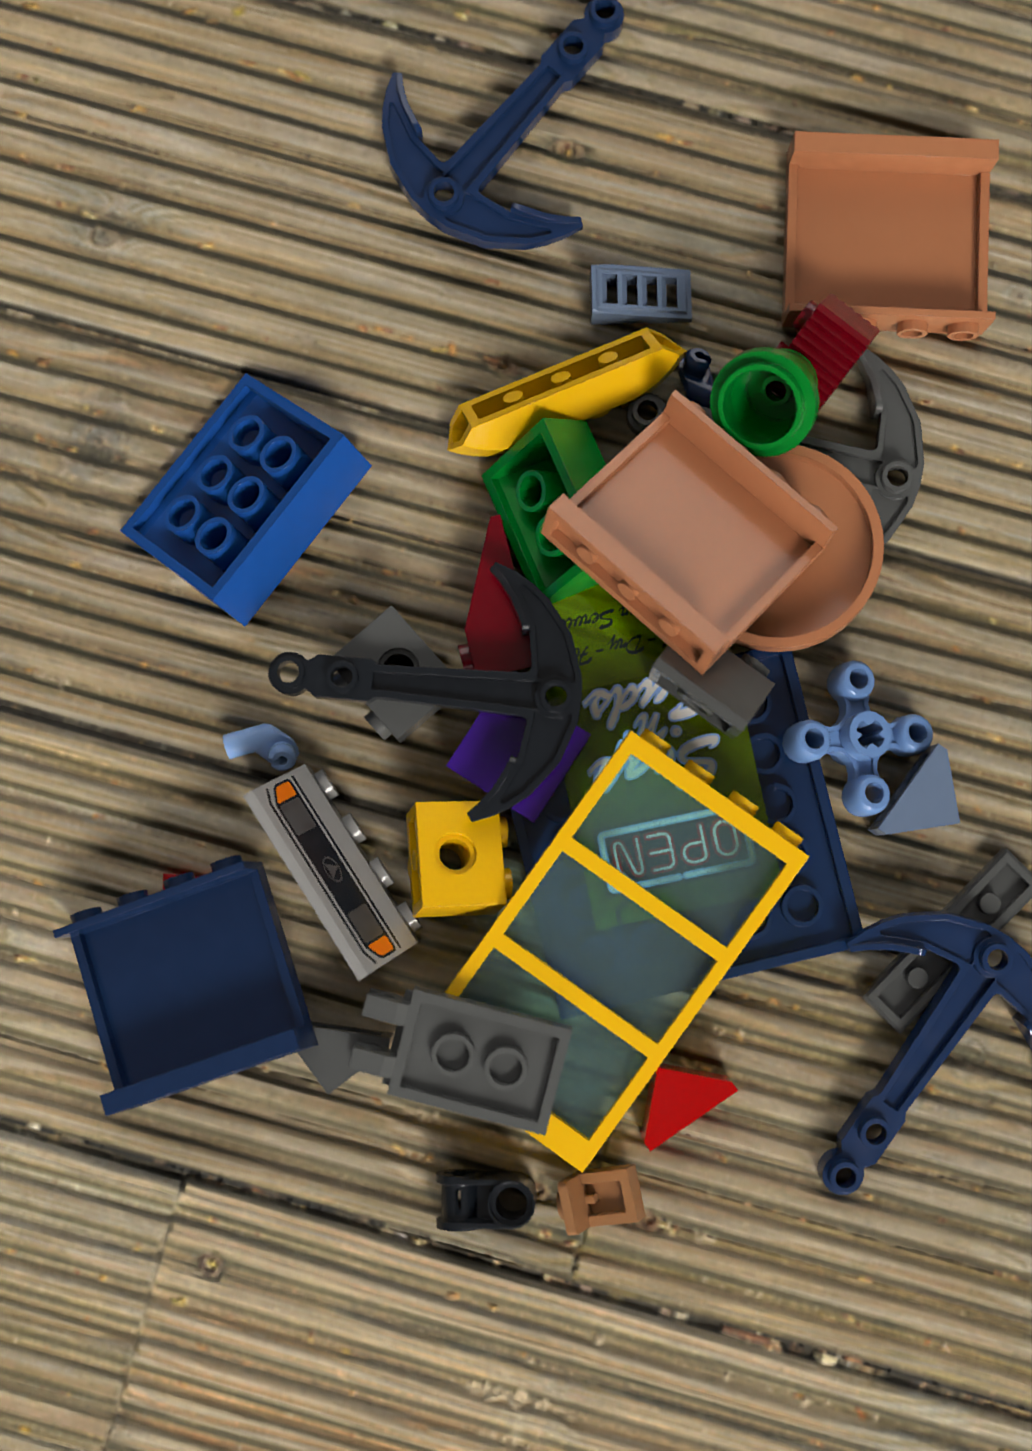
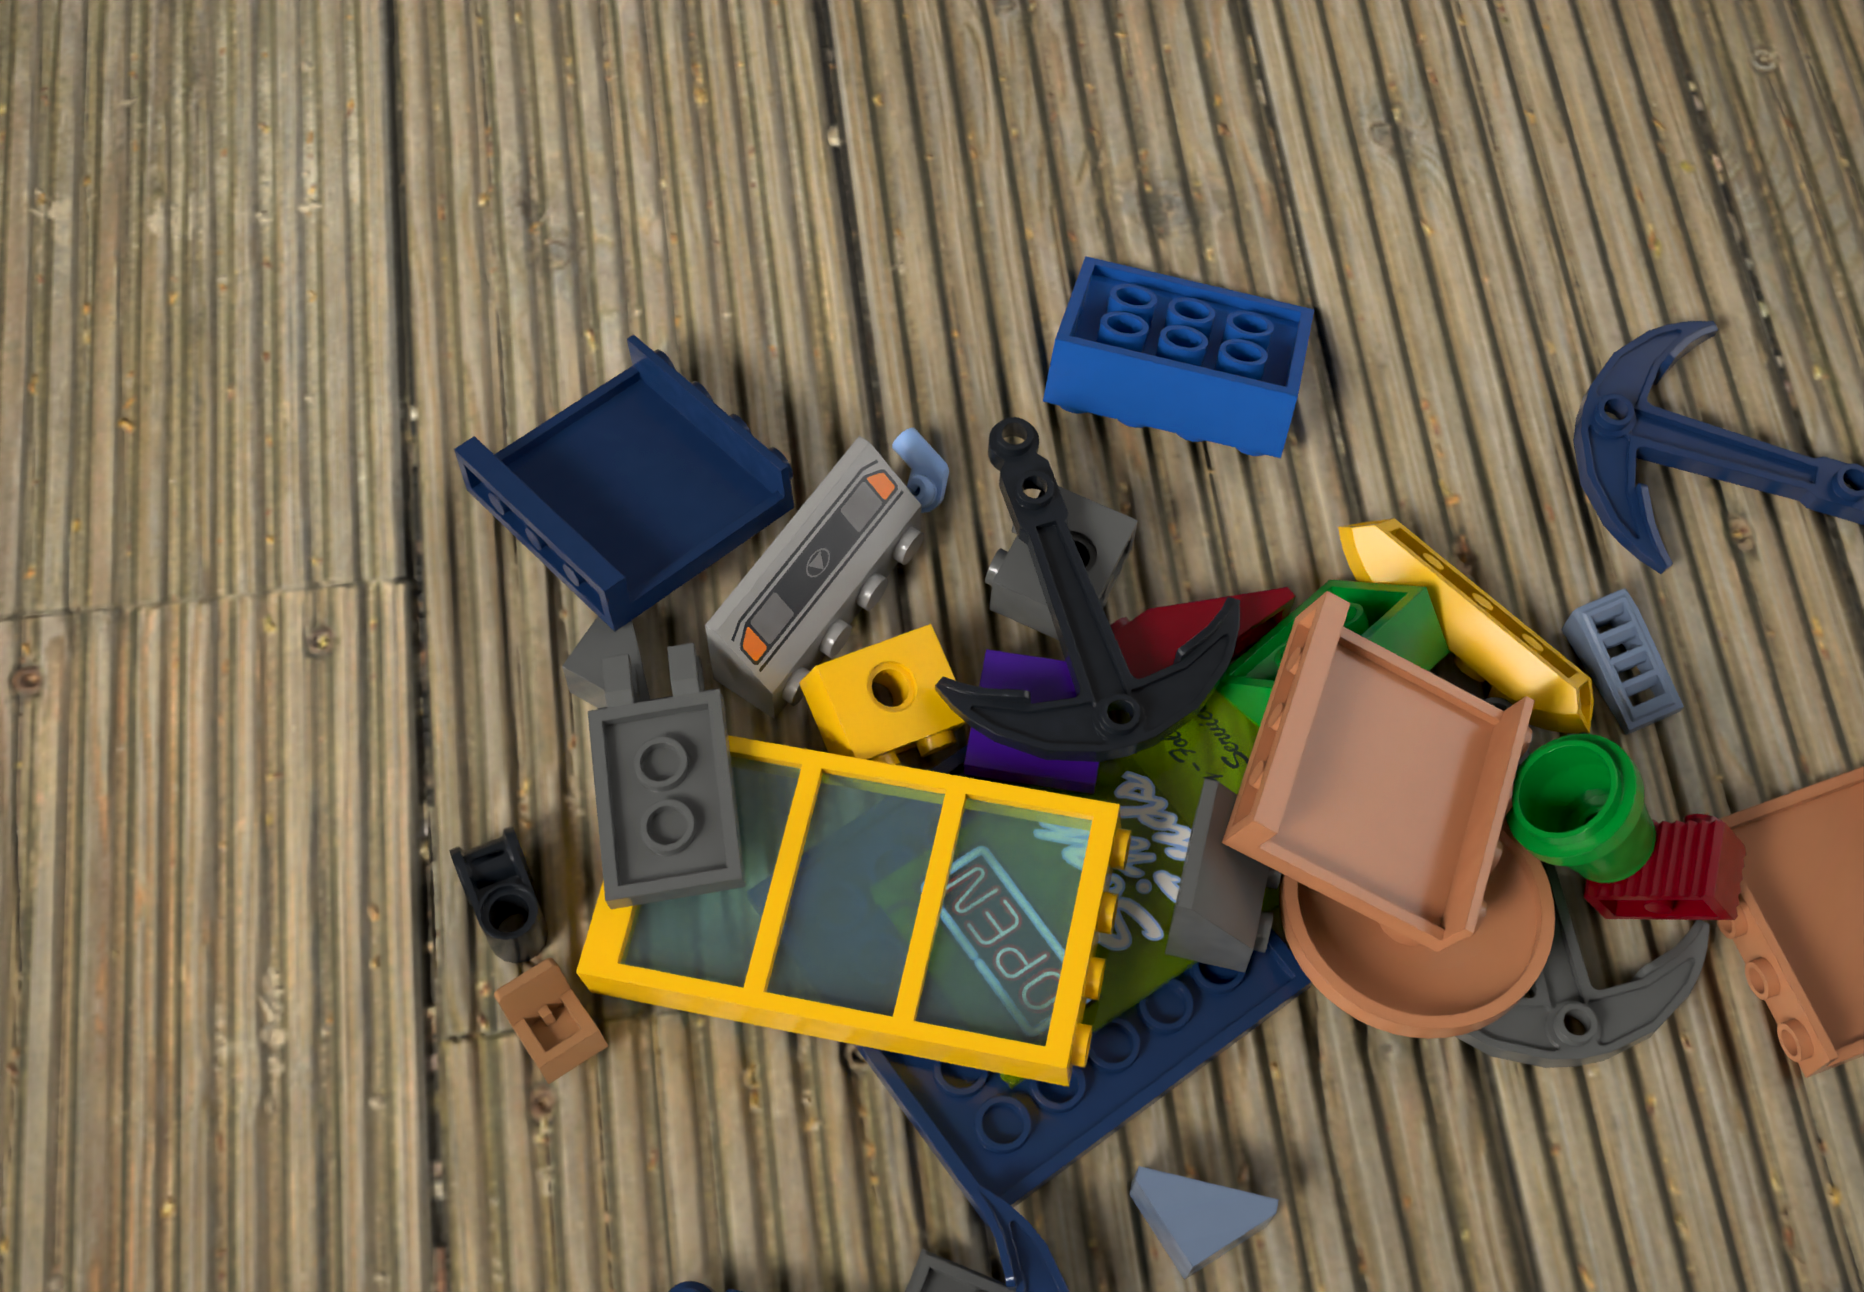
camera: 65 degrees right, 20 degrees down
(679, 1098) = (703, 1065): red slope -> none
(857, 738) = (1216, 1118): medium blue gear -> none

